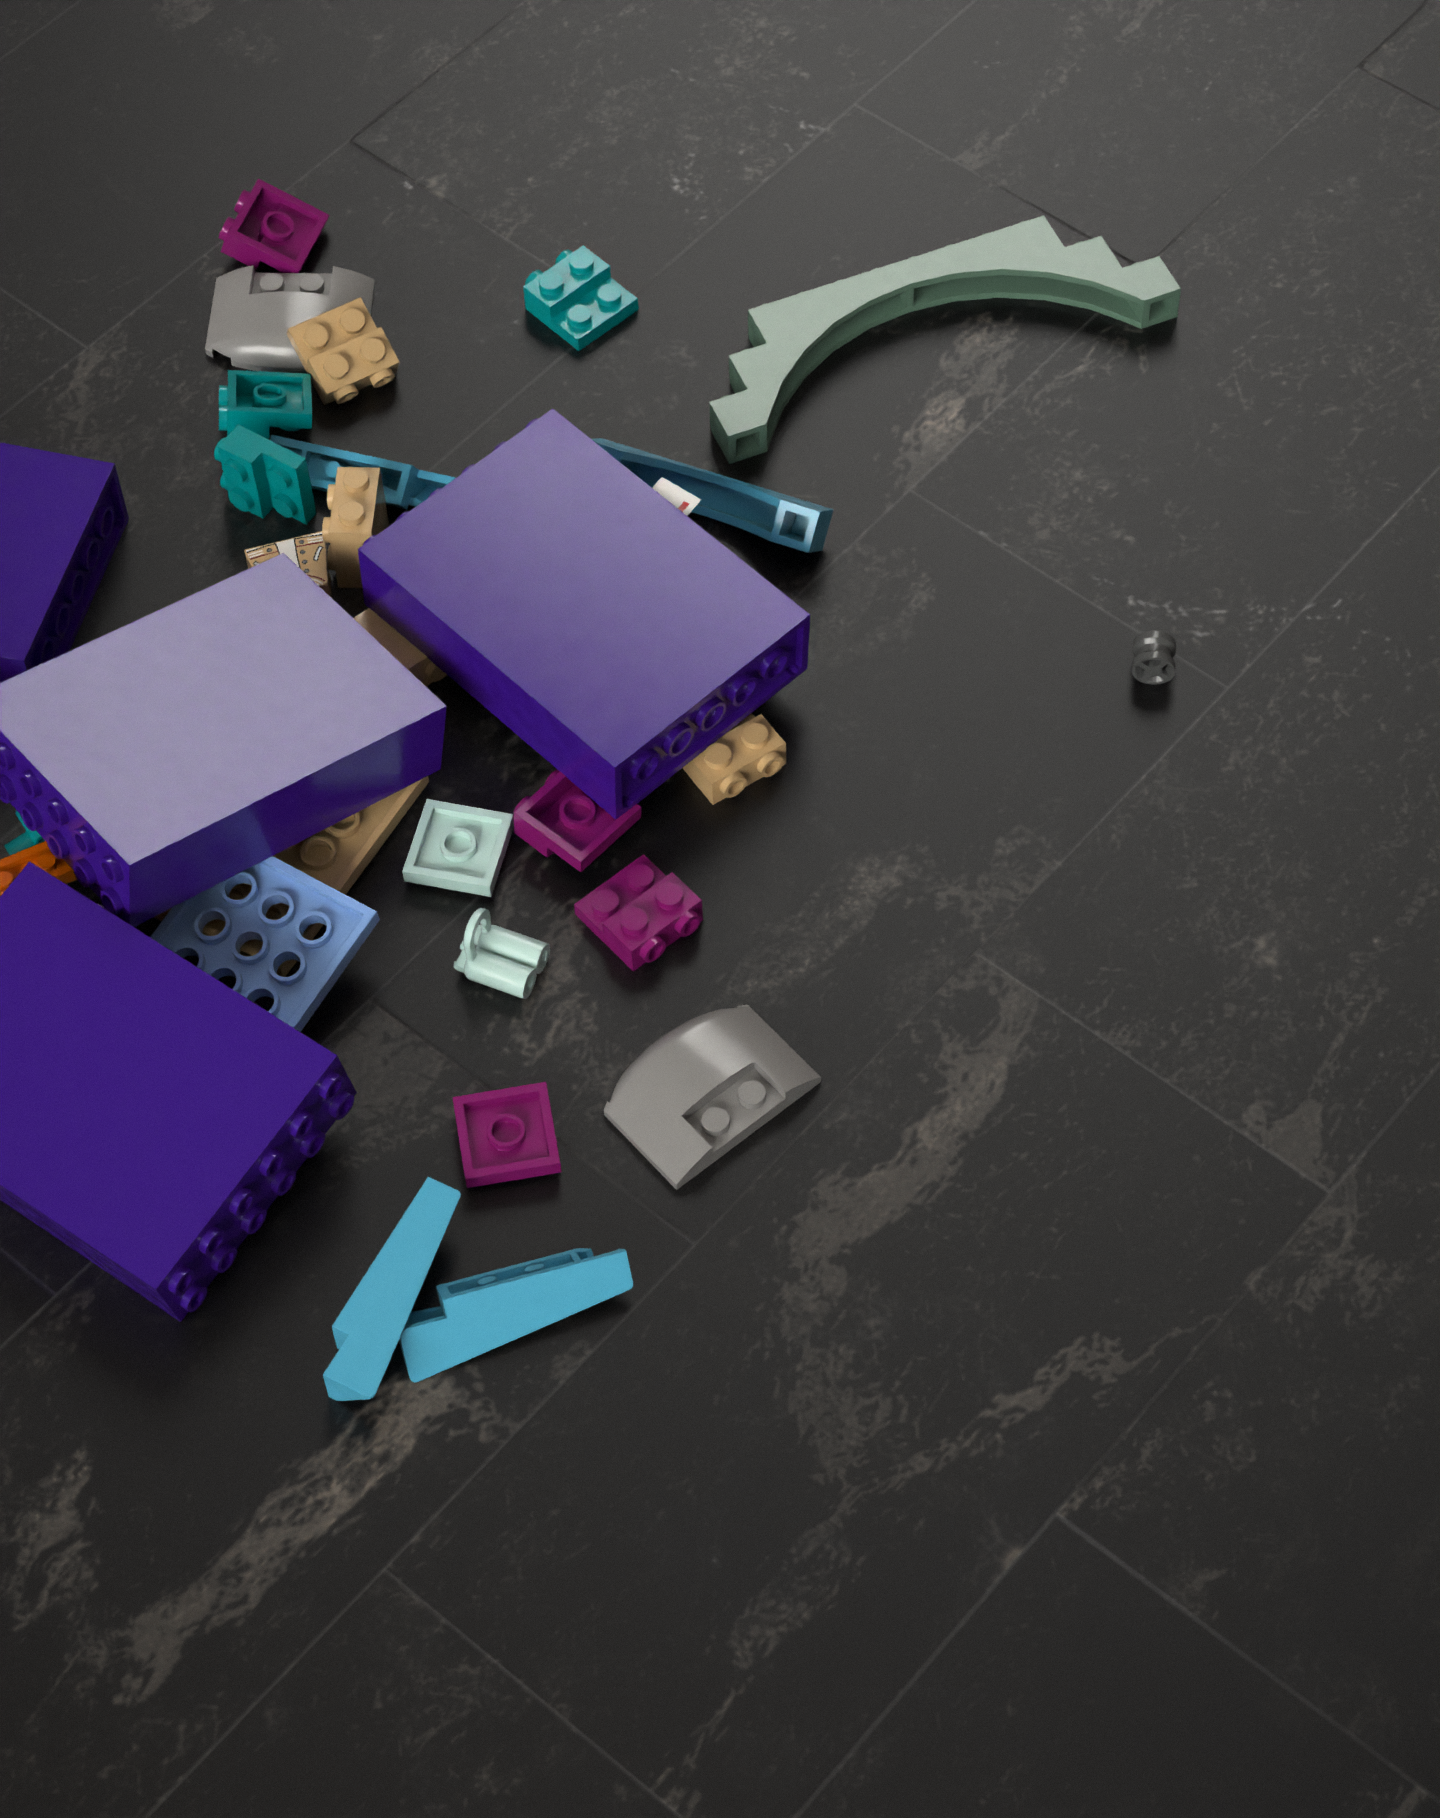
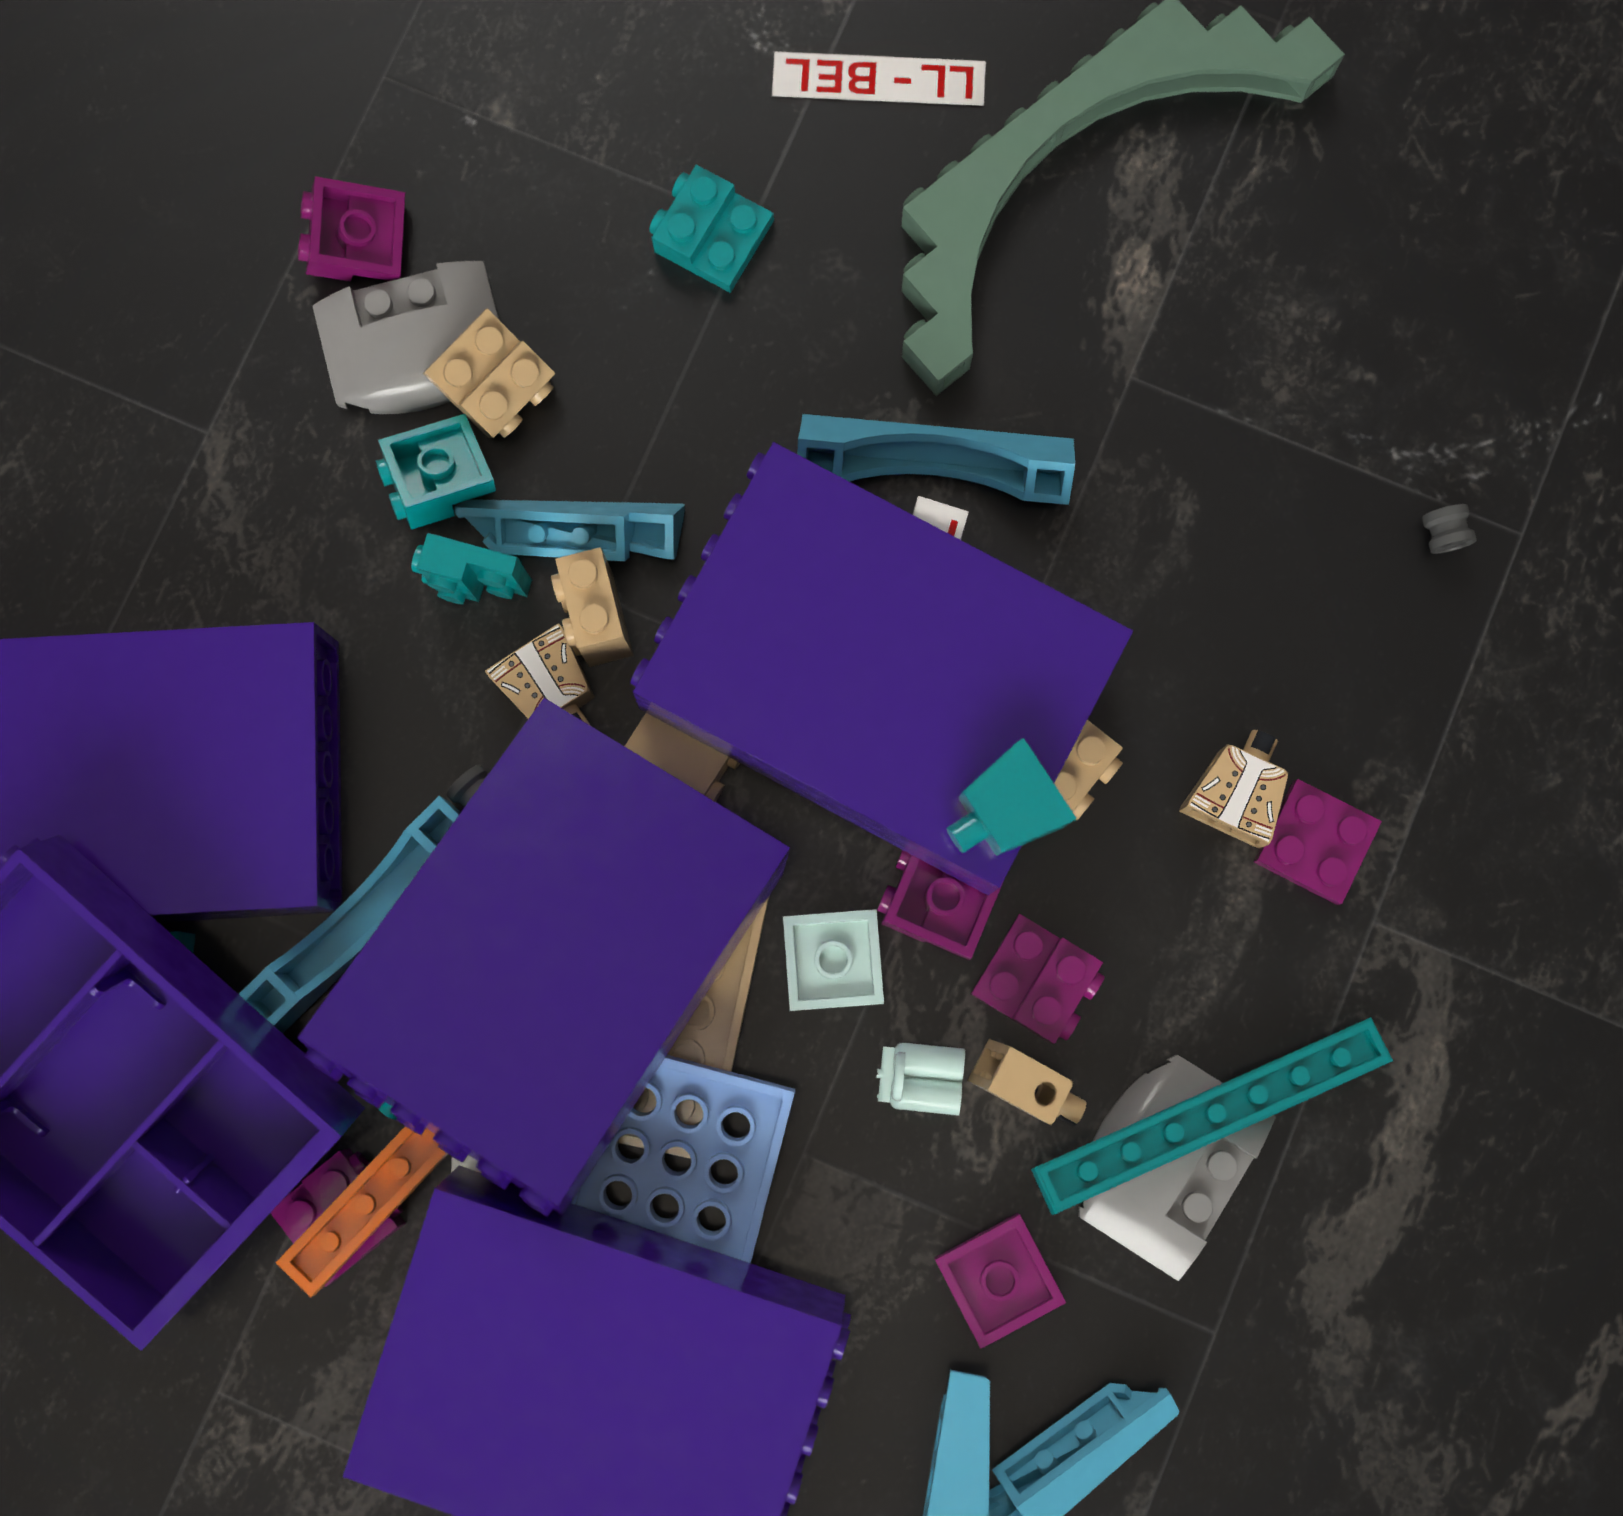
camera: 15 degrees left, 25 degrees up
(591, 974) = (1015, 1078): none -> tan torso
(645, 698) = (1010, 804): none -> teal torso
(756, 1043) = (1210, 1116): none -> teal tile
(772, 231) = (879, 78): none -> white sticker
(881, 808) = (1241, 791): none -> tan torso
(944, 871) = (1318, 842): none -> magenta plate

